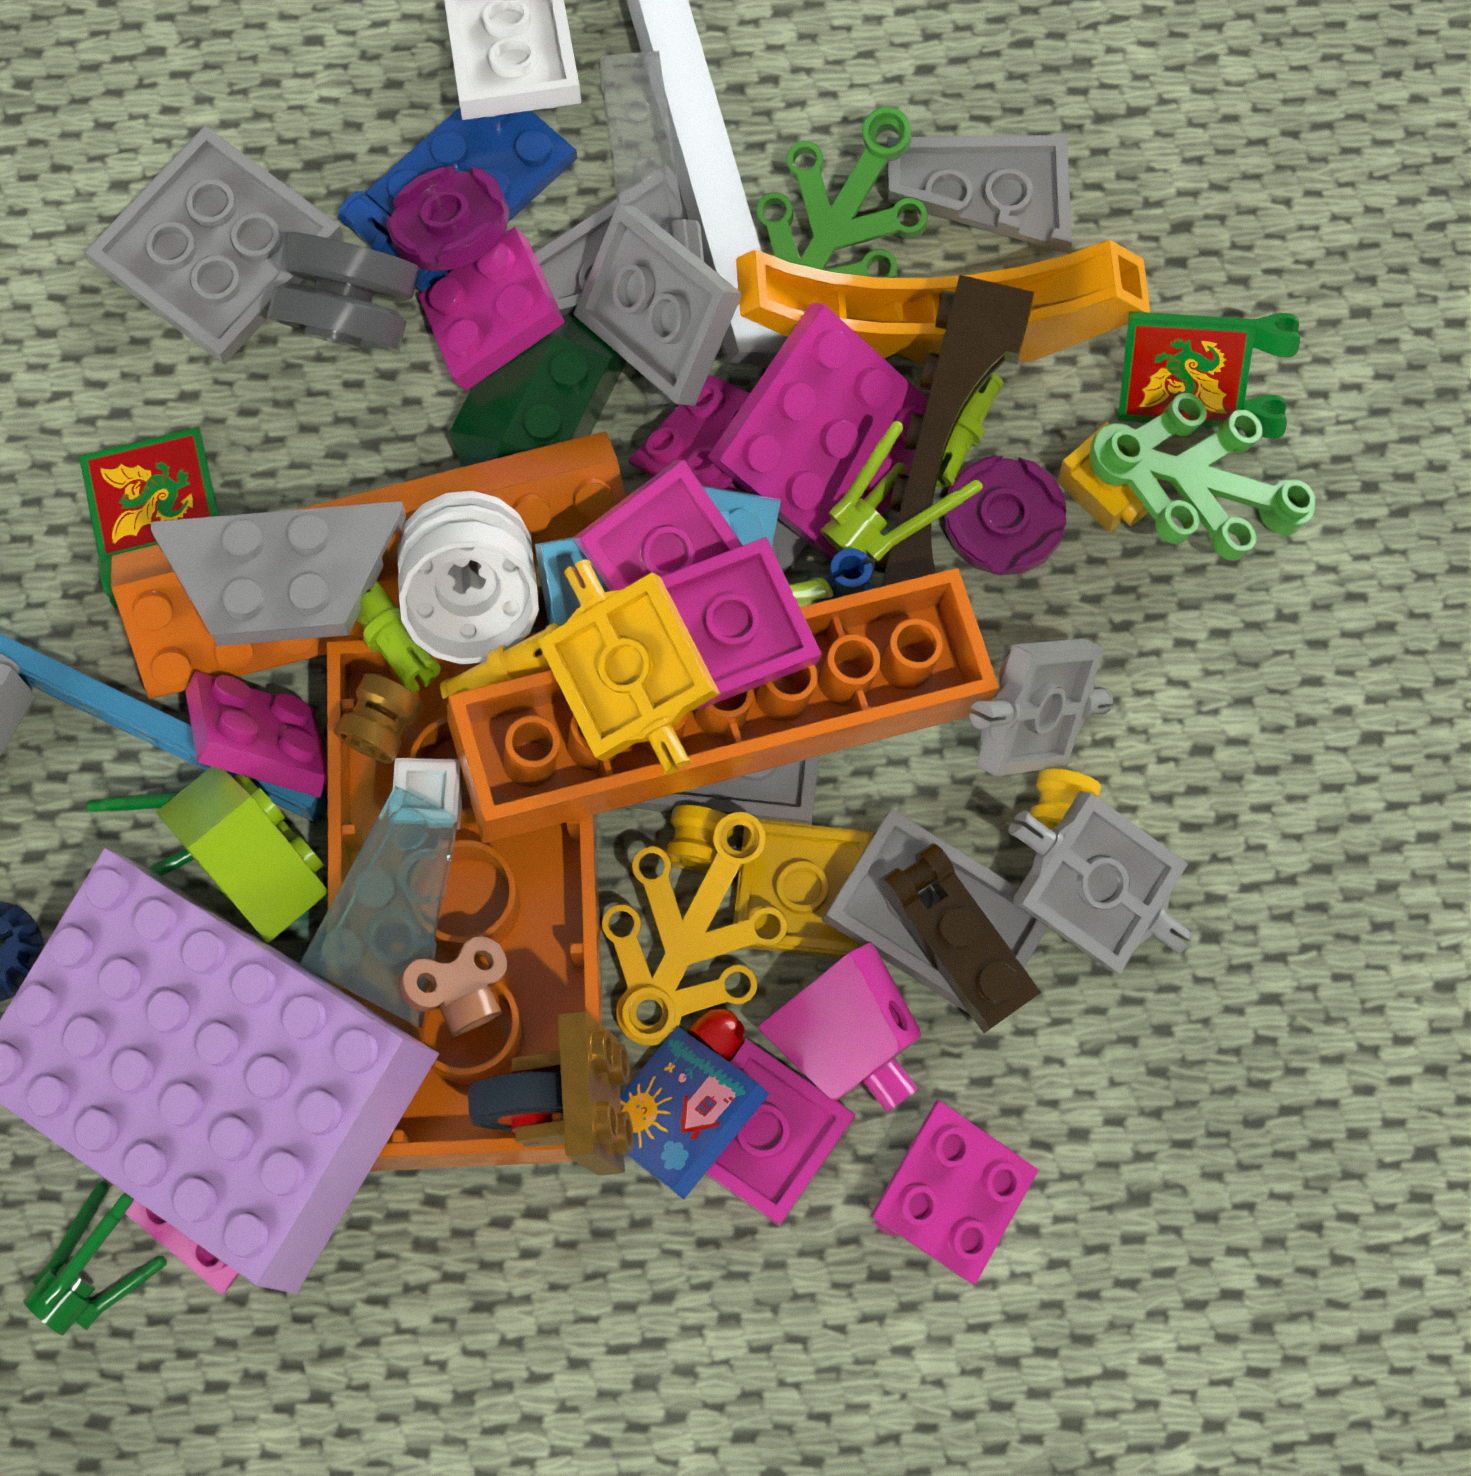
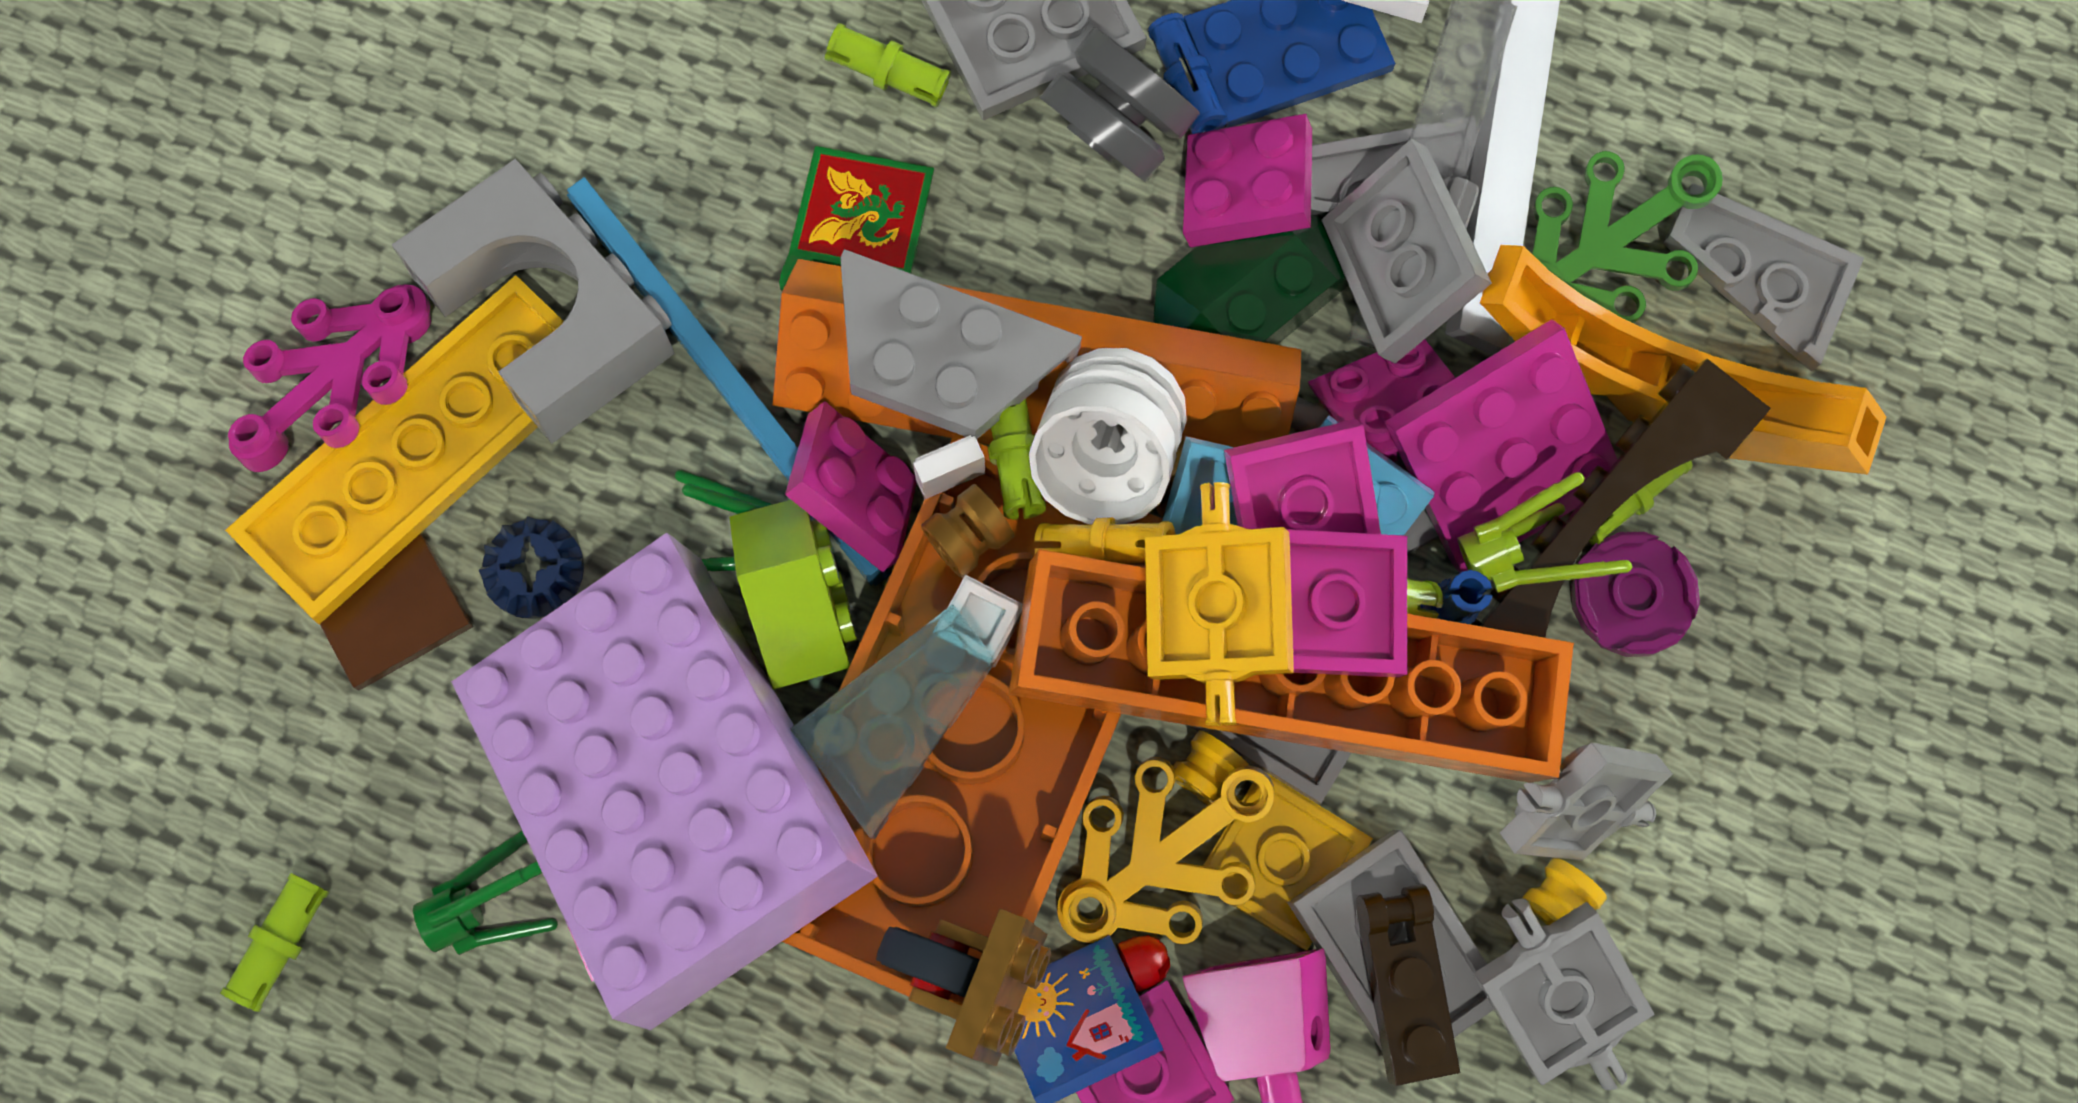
camera: 20 degrees right, 5 degrees up
(113, 353) = (887, 65): none -> lime pin
(336, 670) = (949, 466): none -> white tile
(448, 218) = (1248, 78): magenta tile -> none
(458, 986) = (924, 820): nougat piece -> none
(1103, 501) = (1728, 605): yellow brick -> none
(1195, 478) = (1780, 601): bright green plant -> none
(1202, 358) = (1890, 547): flag -> none

